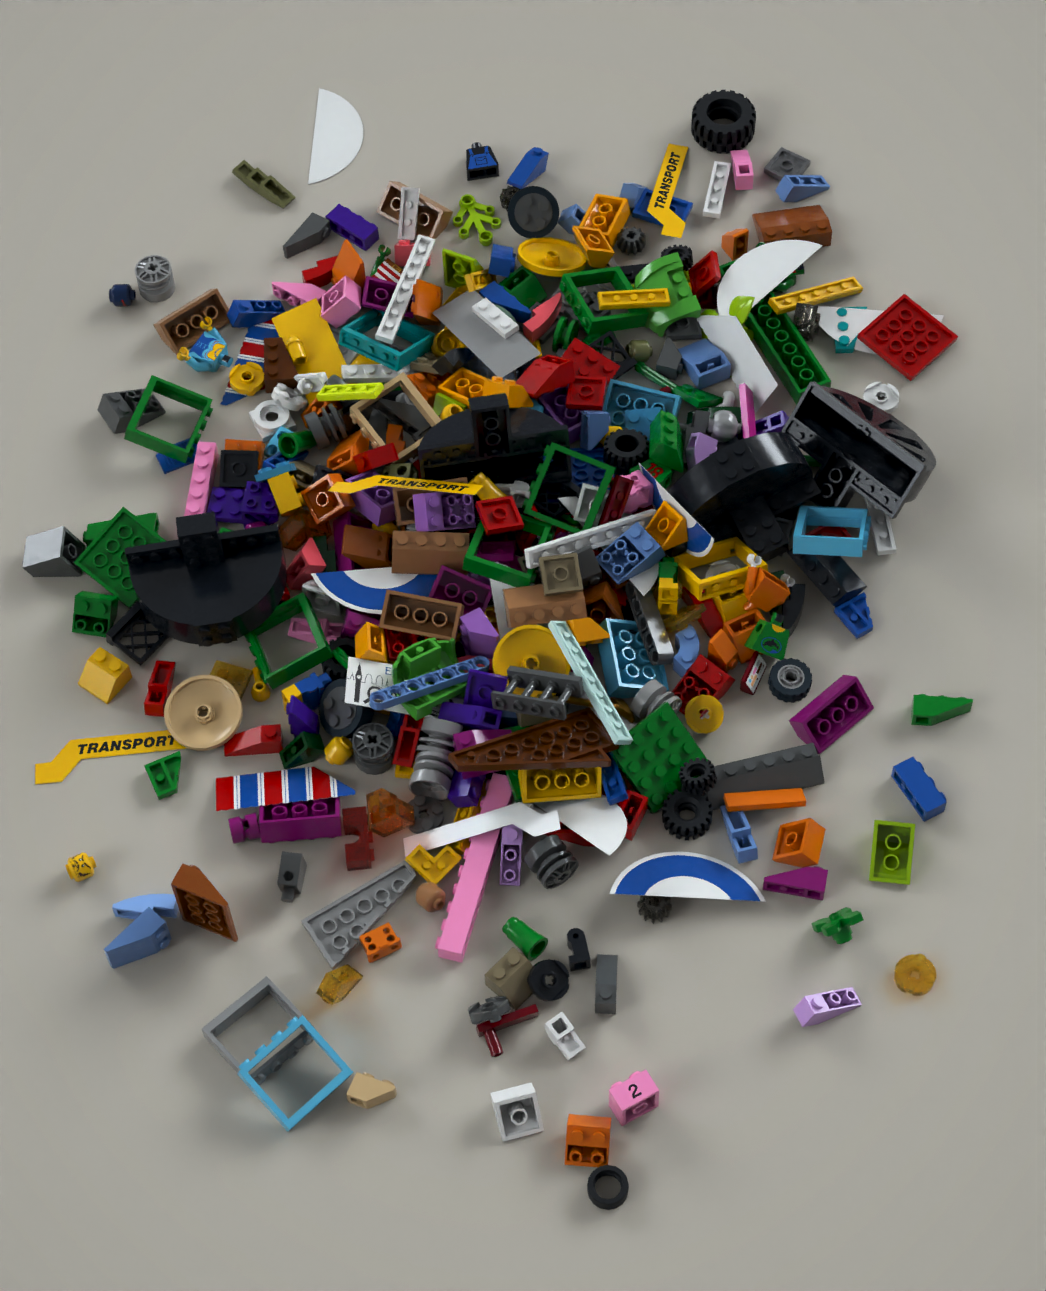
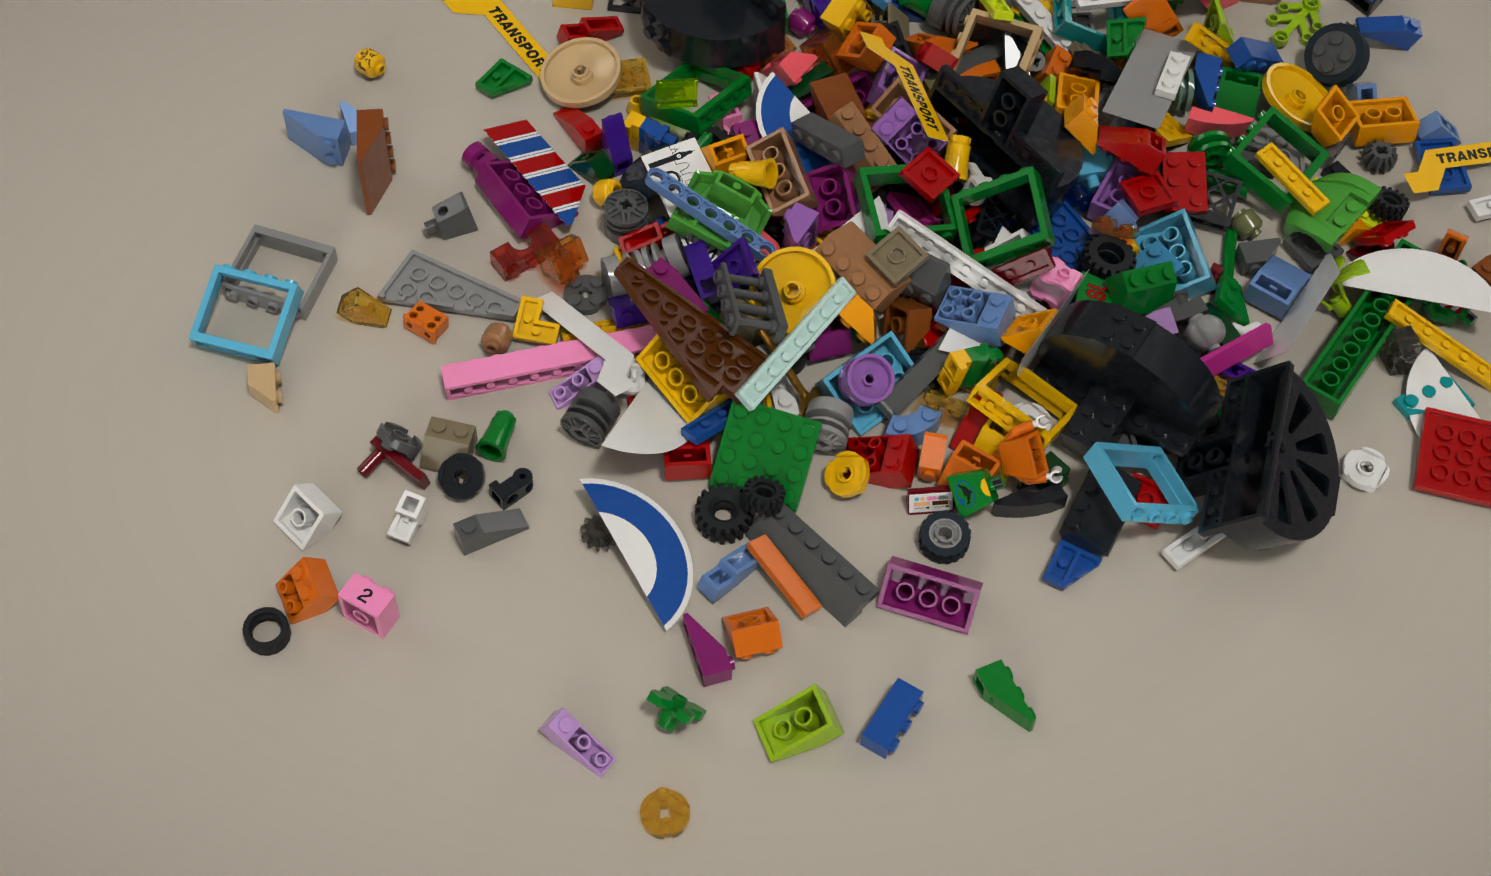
camera: 55 degrees right, 0 degrees up
(286, 650) = (676, 93): none -> clear neon green tile
(414, 631) = (756, 173): none -> yellow plant
(415, 566) = (828, 140): none -> dark grey brick
(433, 330) = (1123, 36): none -> green wing
(601, 432) = (1109, 226): none -> clear orange slope
(640, 656) = (866, 380): none -> medium lavender wheel

